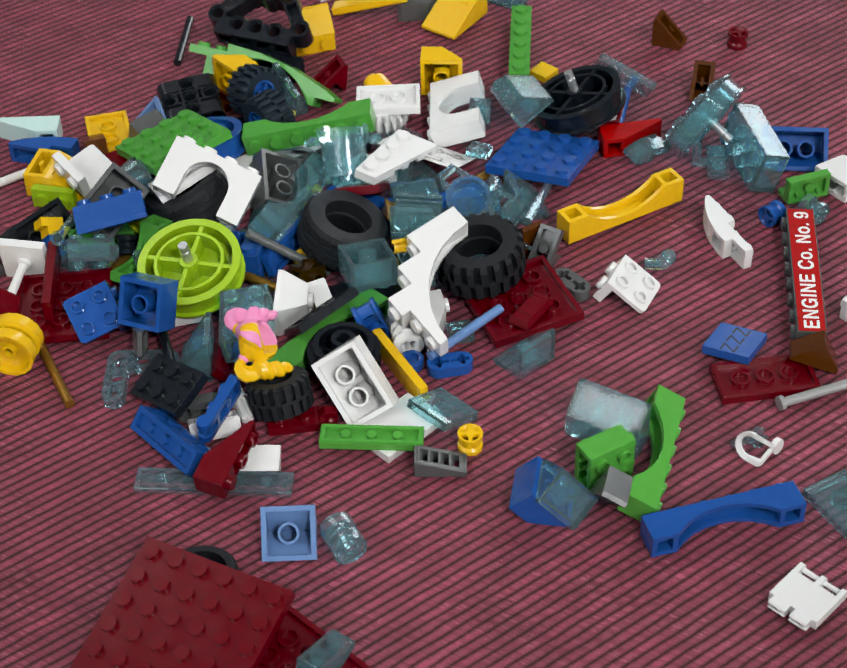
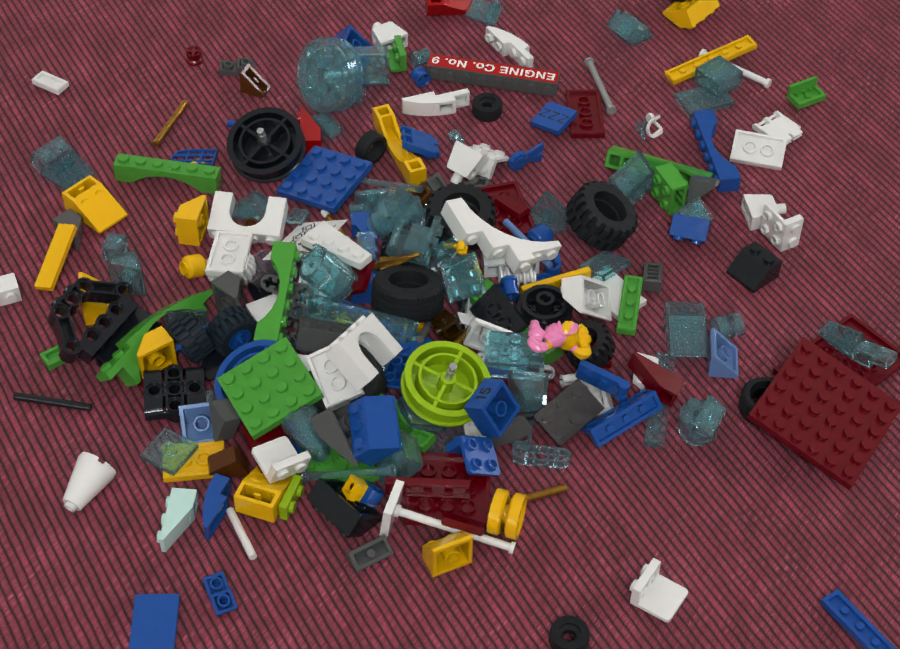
camera: 85 degrees left, 5 degrees up
(75, 69) = (86, 481): none -> white cone
(114, 112) = (169, 451): none -> clear light blue tile
(146, 500) = (709, 417): none -> clear light blue slope
(165, 511) = (686, 420): none -> clear light blue brick
(320, 102) = (228, 291): none -> dark grey slope
(329, 485) = (685, 329): none -> clear light blue slope
(333, 73) = (167, 289): dark red slope -> none
(352, 44) = (127, 268): none -> clear light blue slope
(398, 36) = (114, 245): none -> clear light blue brick
(470, 439) = (635, 255): yellow wheel -> none
(474, 571) = (754, 267): none -> black slope
(482, 344) = (540, 233): none -> blue head
(519, 352) = (601, 215): none -> black tyre
(521, 97) = (253, 173): clear light blue slope -> none
(548, 583) = (781, 232): none -> white bracket
(553, 53) = (181, 154): none -> blue window
(595, 187) = (366, 141): none -> black tyre
(597, 575) = (753, 206): none -> white torso
(599, 257) = (465, 162): none -> white torso
(614, 43) = (170, 123): none -> pearl gold bar
(628, 76) = (243, 111): clear light blue tile -> none
(631, 222) = (419, 142): none -> blue plate
(631, 317) = (521, 158): none -> blue piece
(667, 33) = (173, 91): reddish brown slope -> none
(731, 65) = (230, 68): none -> dark grey slope
(735, 289) = (485, 100): none -> black tyre
(742, 571) = (758, 149): none -> white tile
(814, 351) = (572, 82): reddish brown slope -> none

